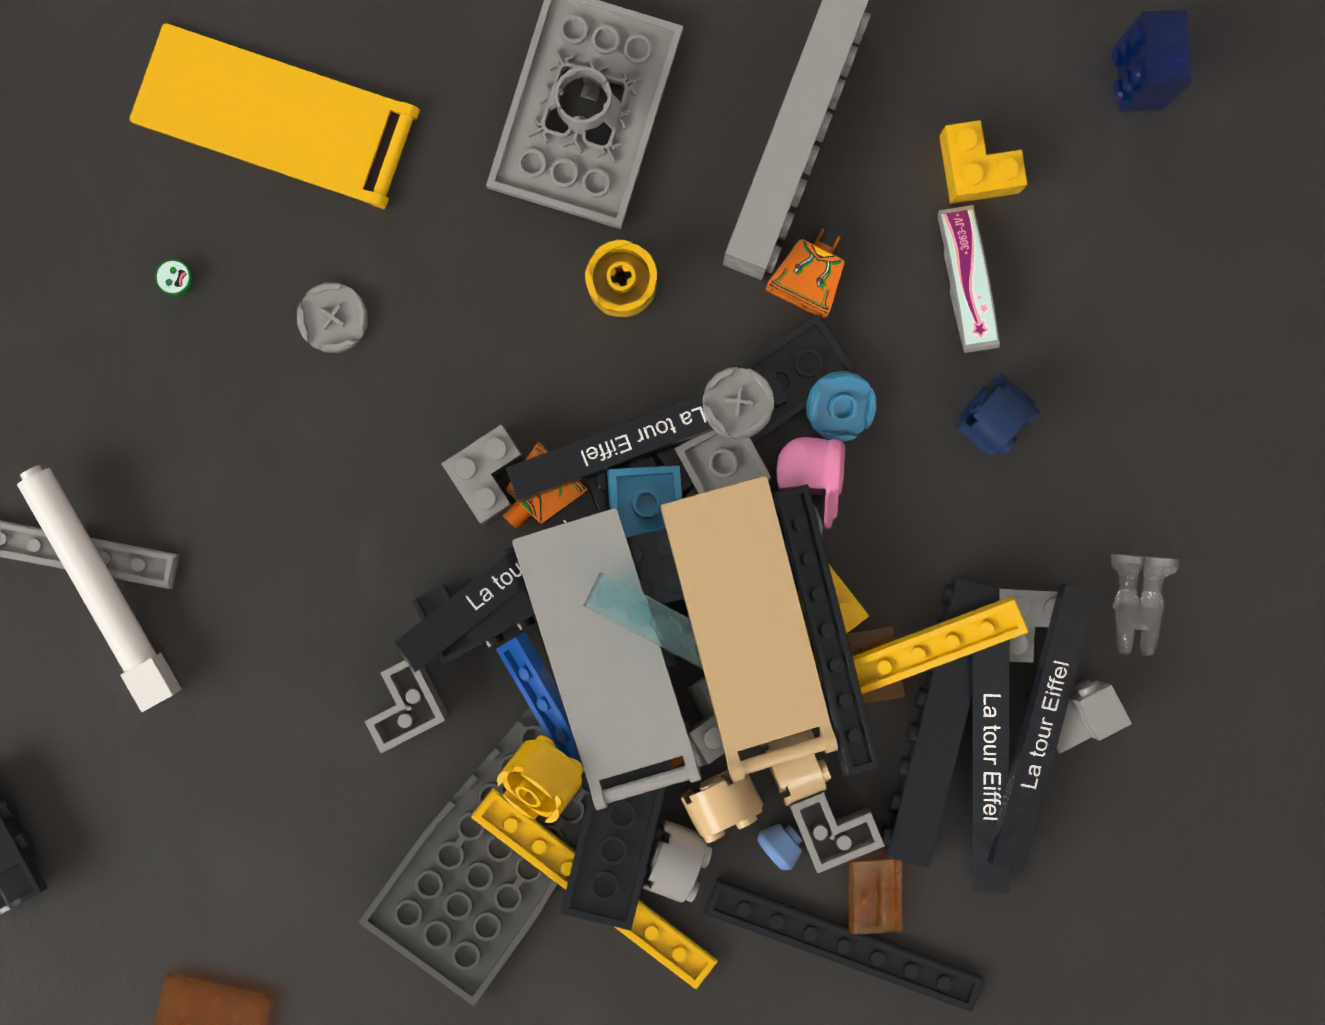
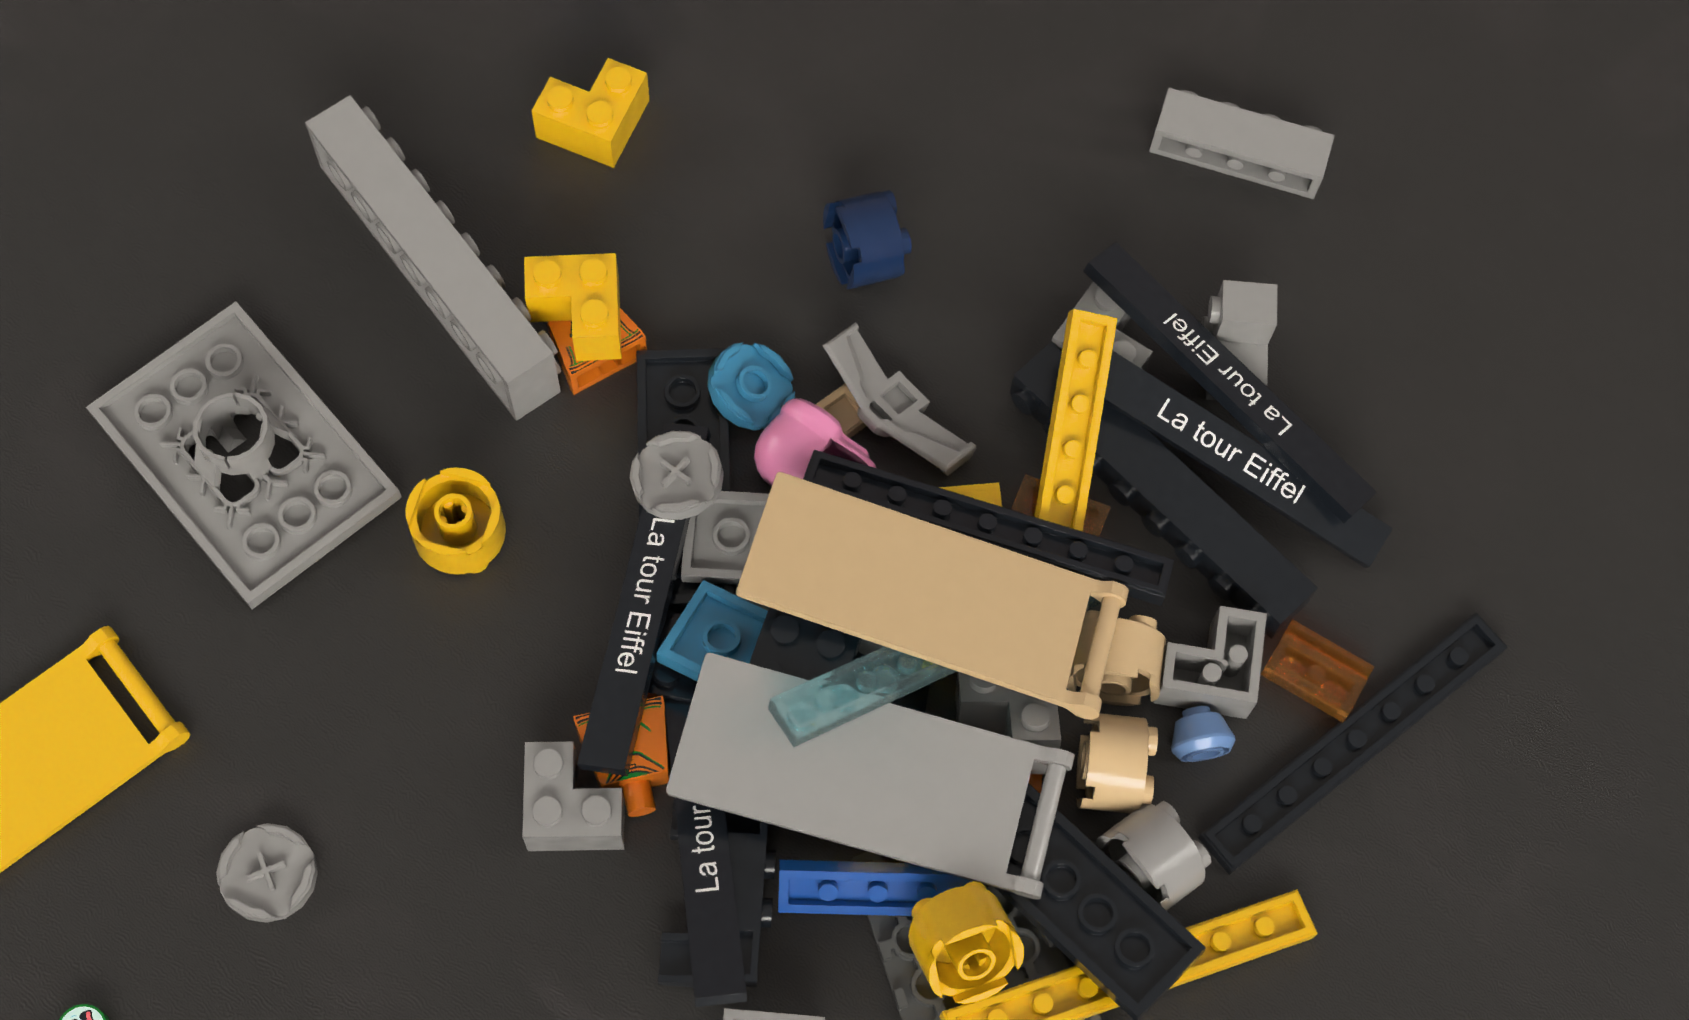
camera: 65 degrees left, 20 degrees down
(828, 257) = (582, 291): none -> yellow brick
(863, 476) = (843, 408): none -> tan tile
(887, 507) = (894, 404): none -> light grey plate
(968, 279) = (701, 186): slope -> none
(1142, 612) = (1164, 236): clear piece -> none
(1249, 629) = (1242, 143): none -> light grey brick

